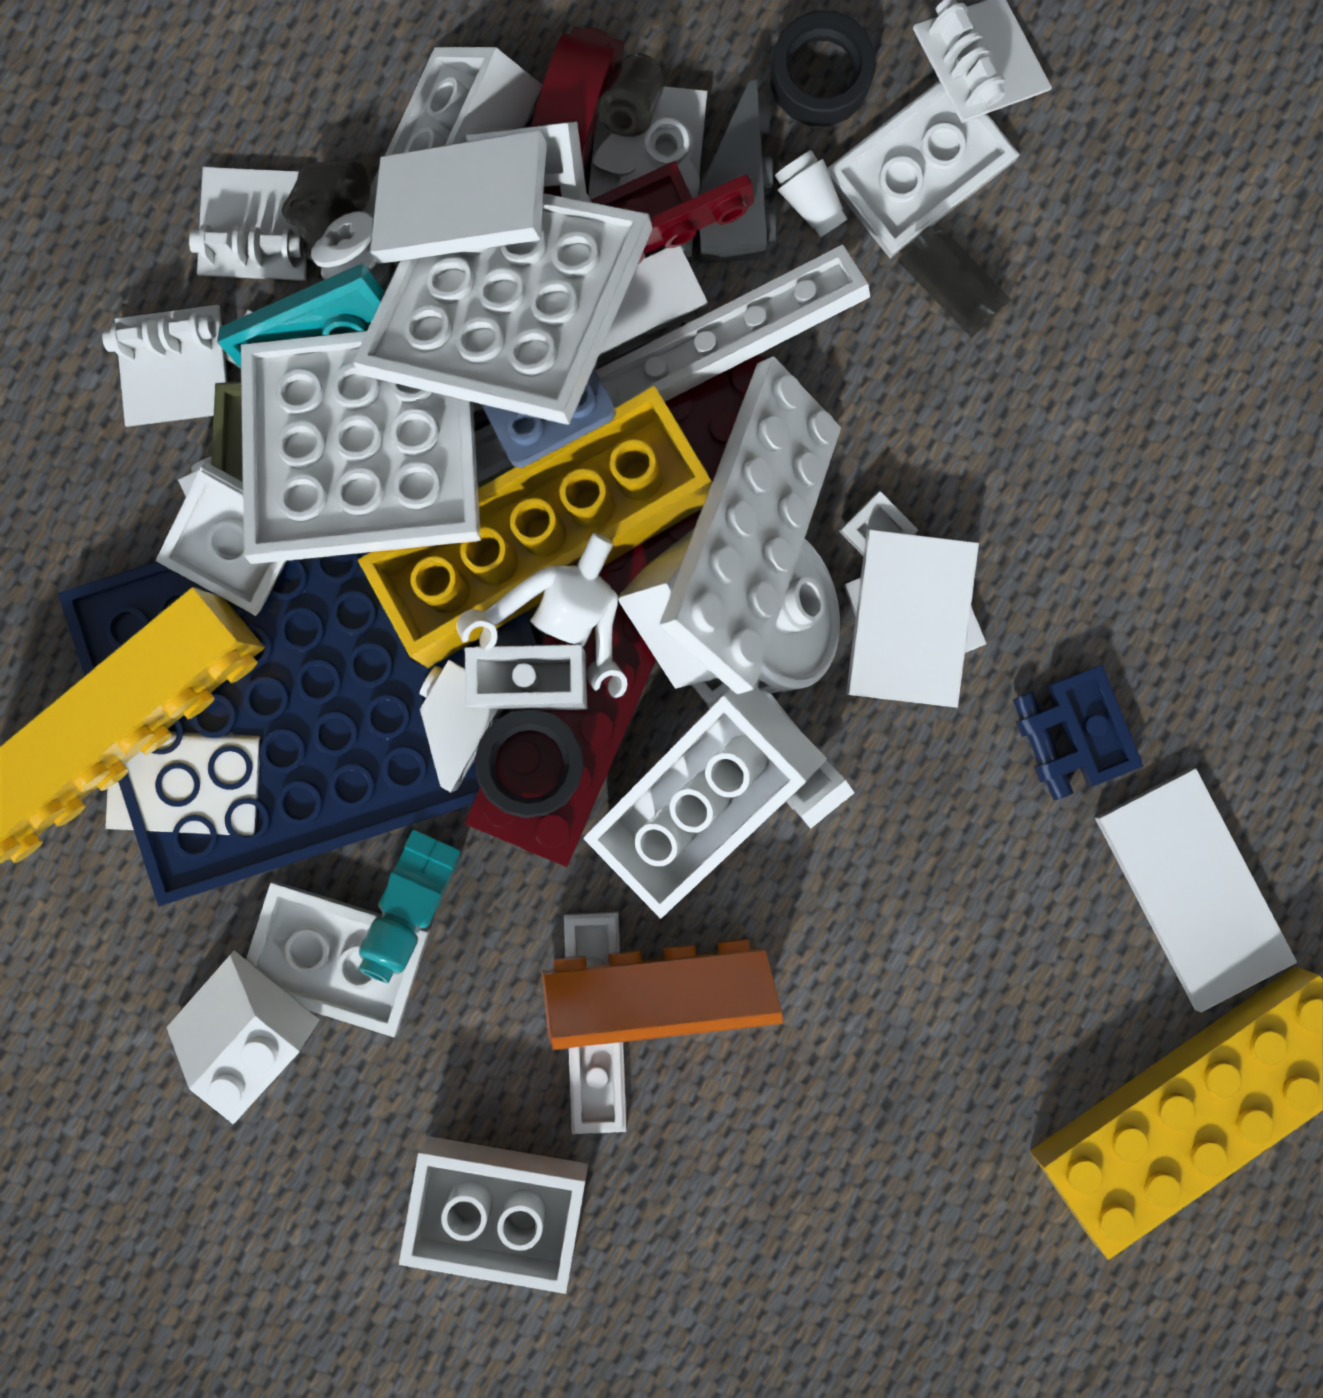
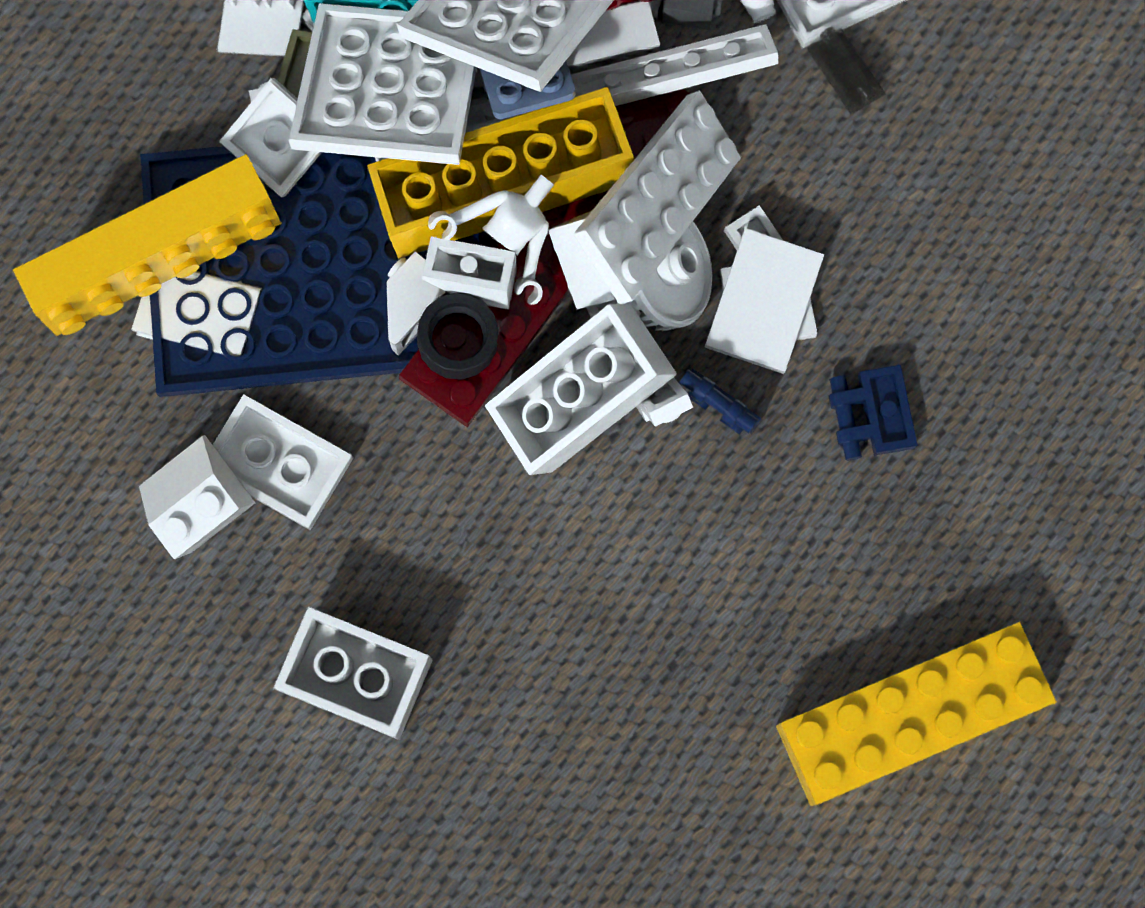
camera: 15 degrees right, 10 degrees down
(407, 905) = (344, 428): teal piece -> none
(595, 1070) = (462, 554): white tile -> none
(659, 995) = (515, 533): orange slope -> none
(885, 767) = (706, 392): none -> dark blue plate
(1195, 890) = (942, 550): white tile -> none

